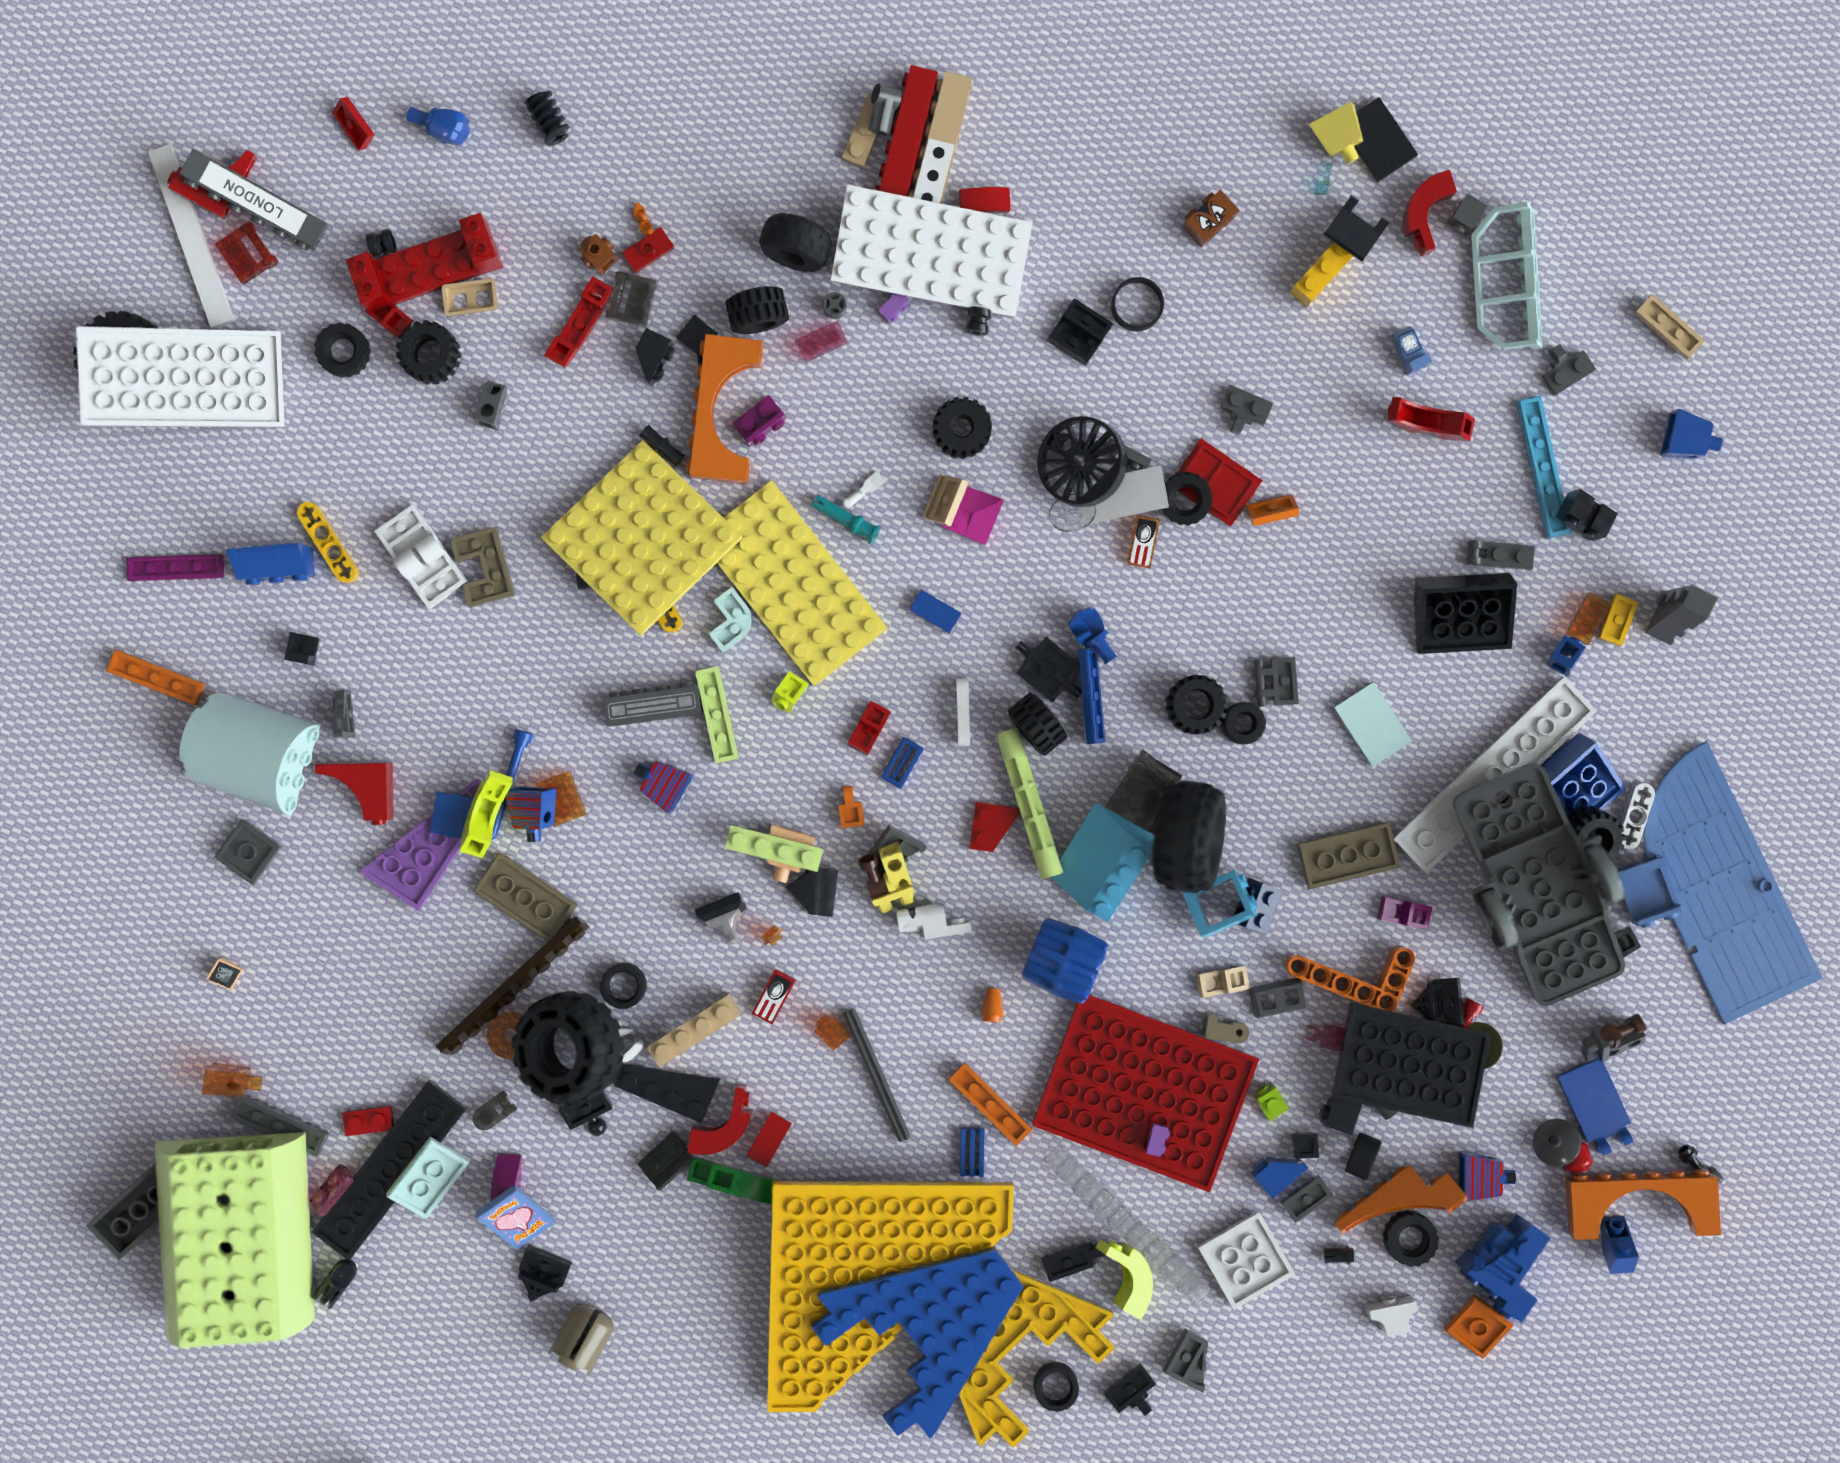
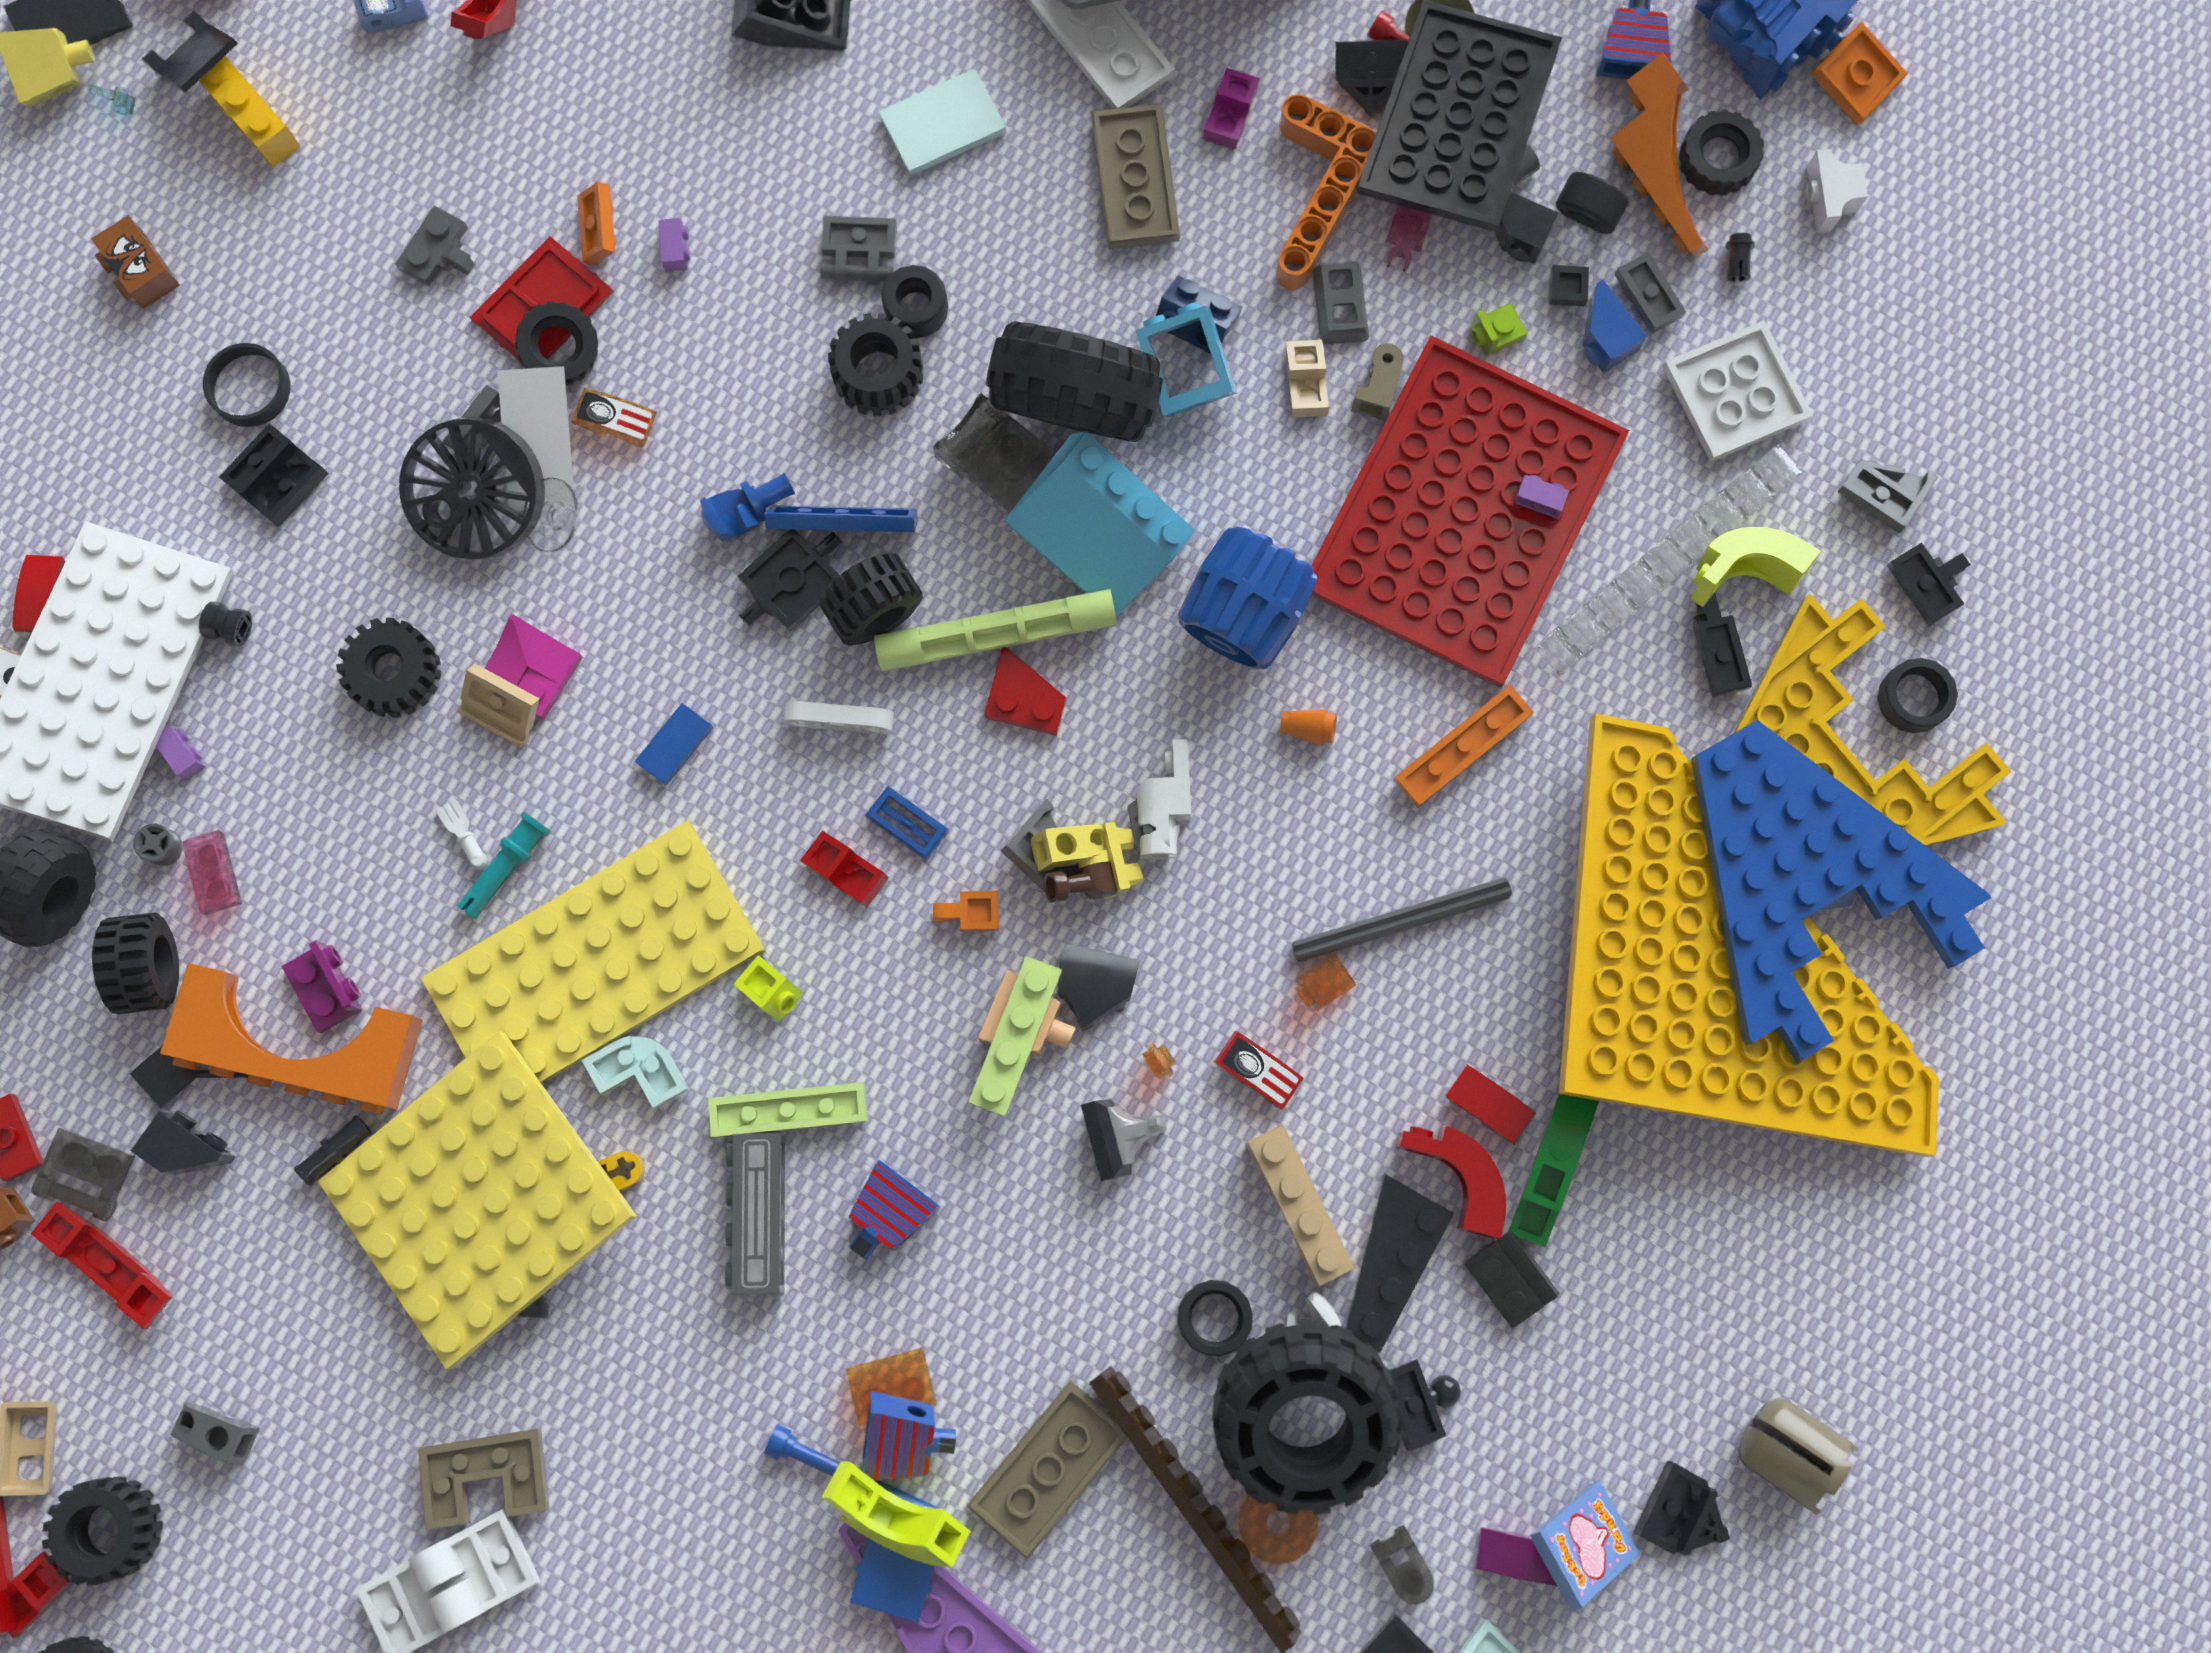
camera: 80 degrees left, 10 degrees down
(971, 1173) = (1541, 770): blue tile -> none
(1265, 561) = (673, 244): none -> medium lavender piece

